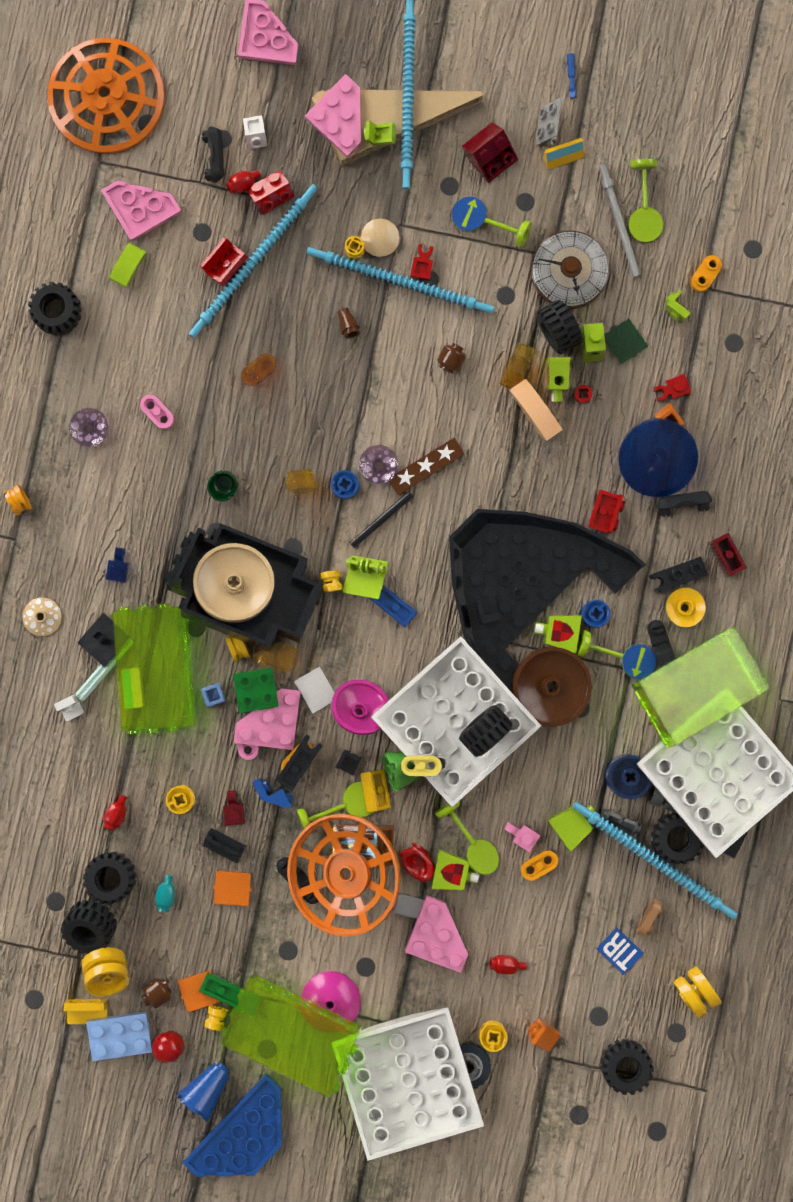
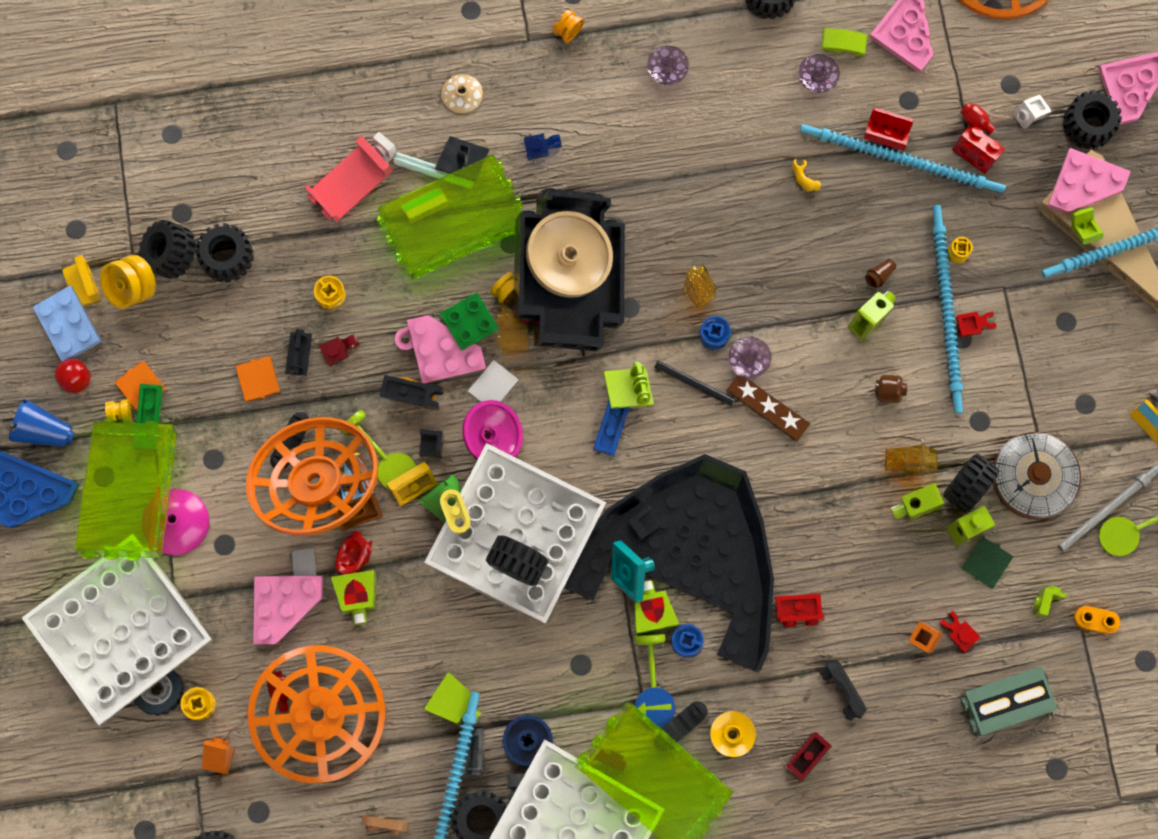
camera: 70 degrees right, 10 degrees down
(86, 746) = (350, 181): none -> coral panel
(115, 814) = (291, 235): red plant -> none
(144, 291) = (819, 65): none -> clear purple dish
(156, 993) = (123, 342): reddish brown head -> none
(158, 412) = (710, 125): bright pink plate -> none
(165, 894) = (227, 314): teal plant -> none
(213, 695) = (448, 284): medium blue slope -> none
(214, 139) = (1006, 74): black piece -> none
(222, 485) = (663, 212): dark green hair -> none
(242, 353) = (806, 183): none -> yellow piece
(257, 368) = (796, 203): clear orange plate -> none
(280, 69) = (1096, 104): none -> black tyre
(280, 797) = (368, 389): blue slope -> none
(328, 577) = (610, 356): yellow wheel -> none
(380, 237) = (981, 272): tan dish -> none
(382, 345) = (872, 314): none -> lime torso
(471, 213) = (1048, 353): piece -> none
(481, 854) = (385, 617): lime piece -> none
(490, 152) = (1119, 347): dark red slope -> none
(523, 639) = (629, 570): none -> teal tile
(523, 837) = (421, 657): bright pink plate -> none
(528, 937) = (300, 711): none -> orange dish
(535, 410) = (874, 494): light nougat slope -> none
(539, 865) = (397, 684): light orange plate -> none
(552, 685) = (592, 622): reddish brown dish -> none
(577, 393) = (915, 545): red bush -> none
(620, 951) = (337, 808): blue sticker -> none
(658, 457) = (879, 641): clear blue dish -> none
(679, 574) = (765, 715): black plate -> none
(745, 374) = (1008, 701): none -> sand green panel

